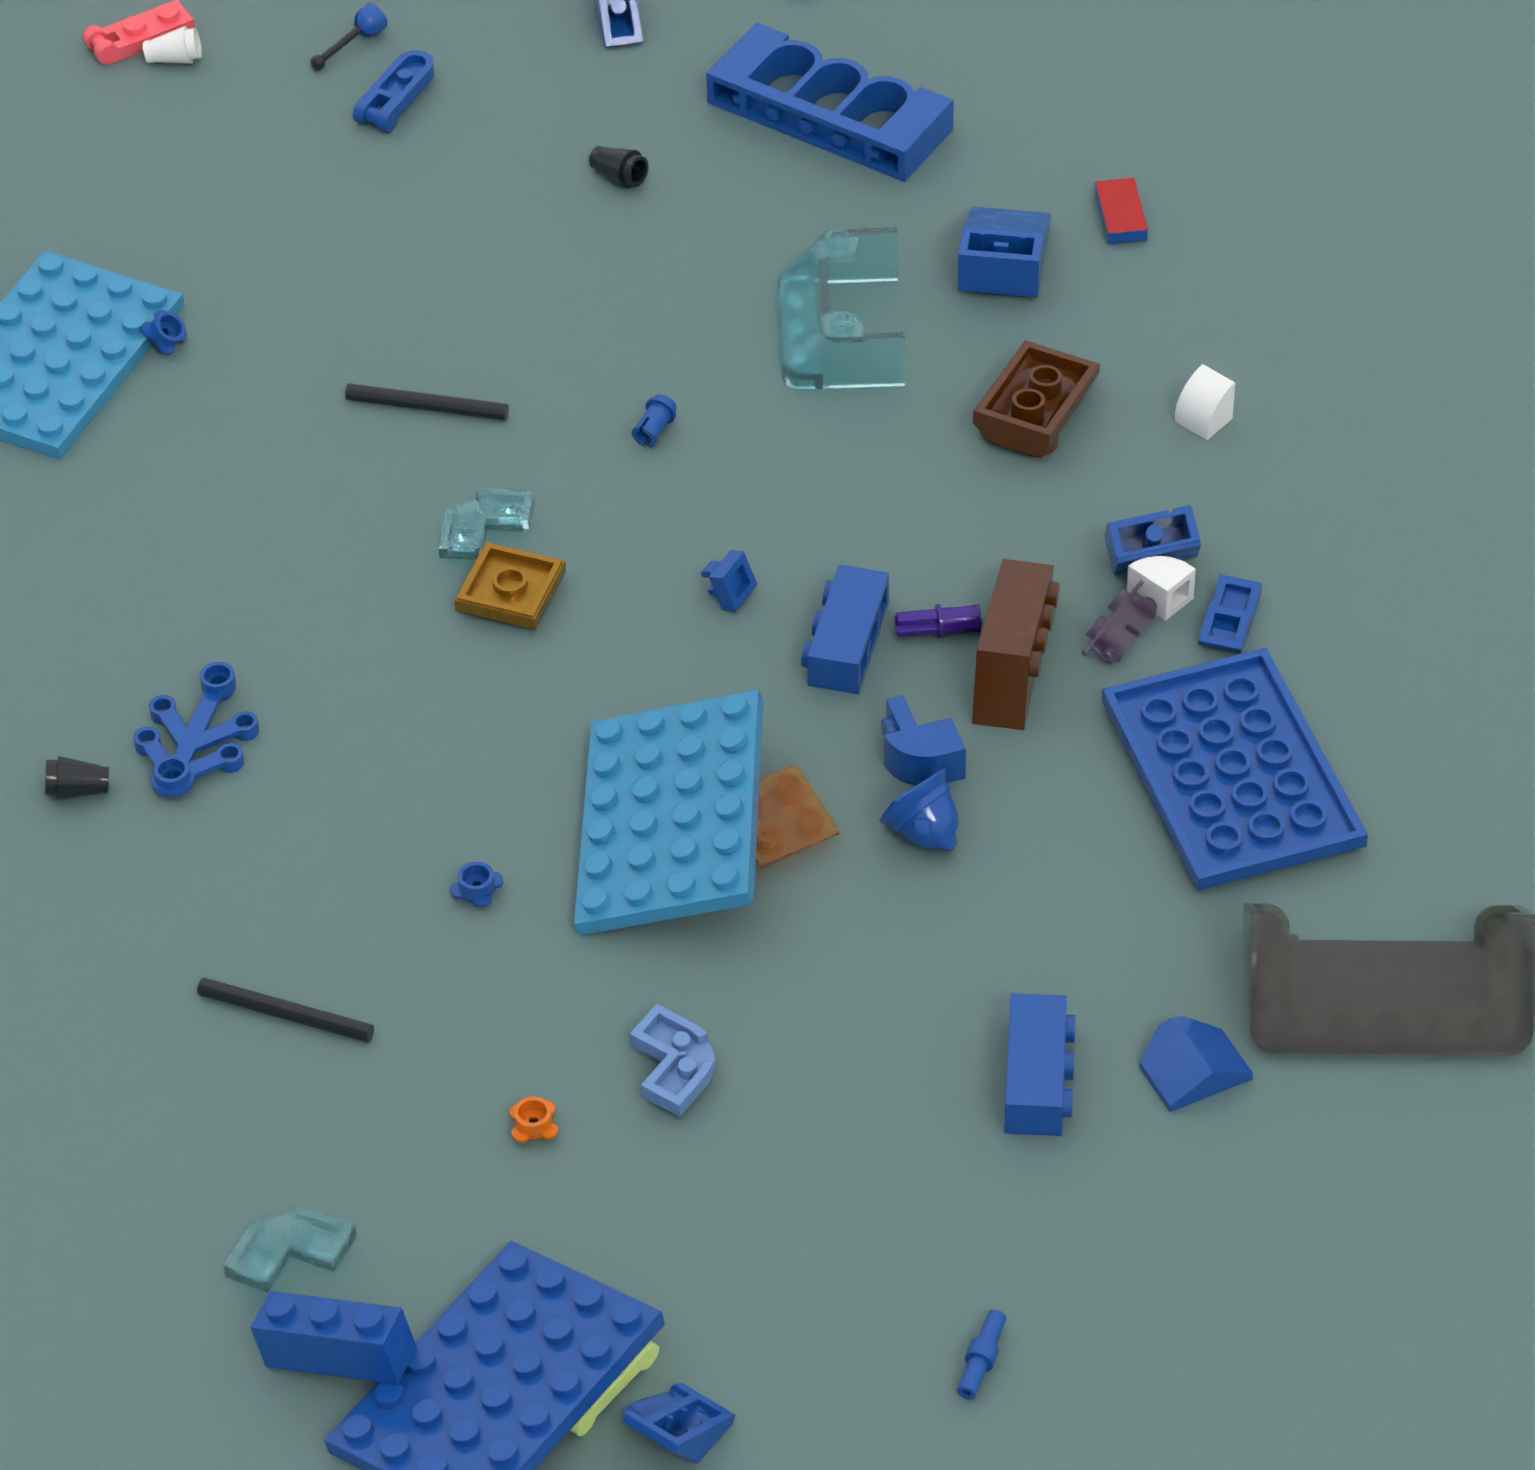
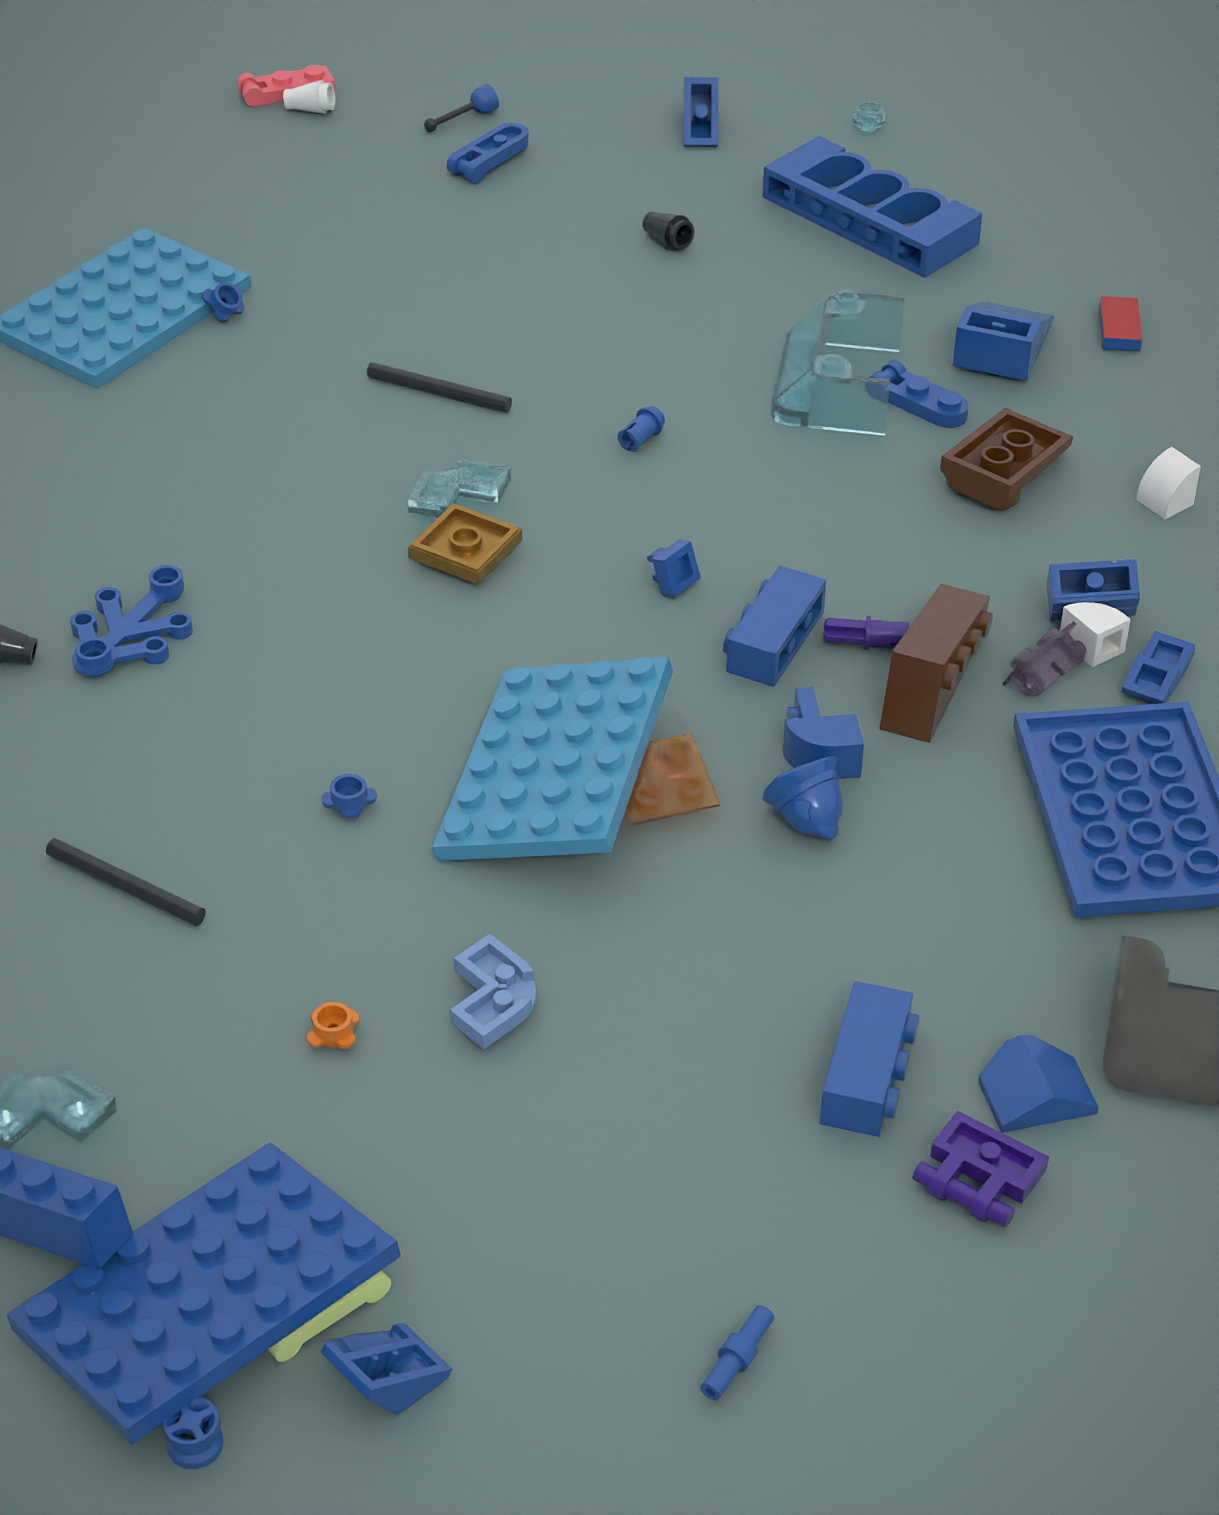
camera: 10 degrees right, 5 degrees down
(932, 333) = (923, 397): none -> blue plate
(1162, 1138) = (987, 1157): none -> dark purple plate

